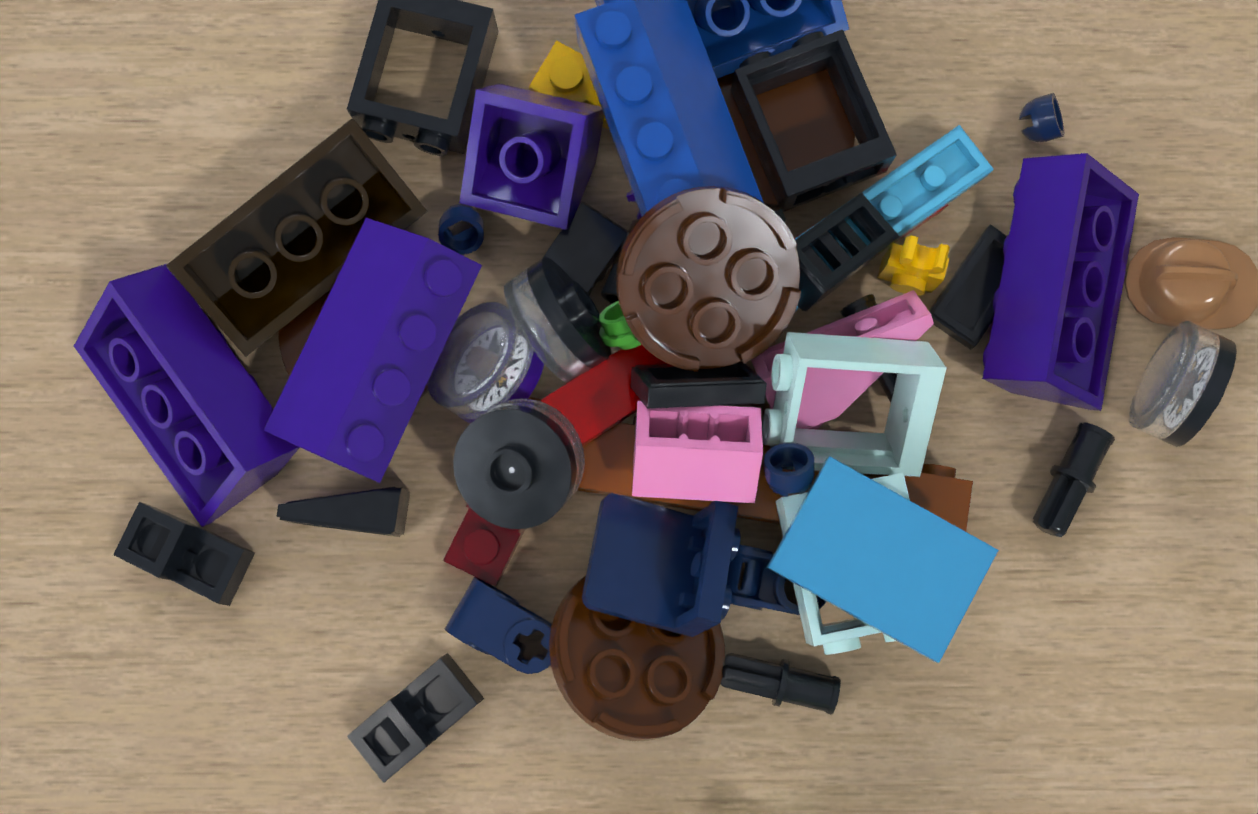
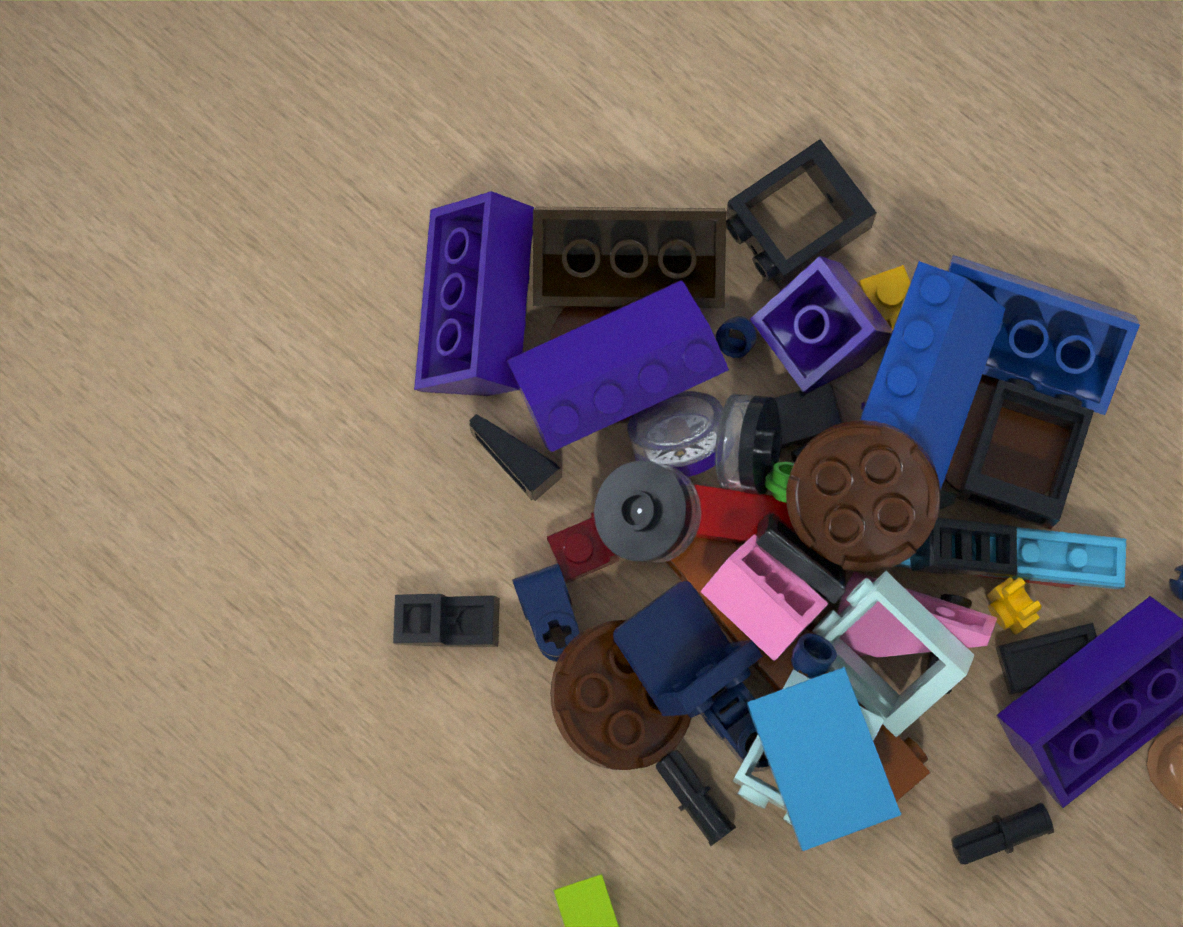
camera: 45 degrees right, 5 degrees down
(184, 554) = (390, 397): black slope -> none
(1183, 383) = (1127, 829): clear piece -> none

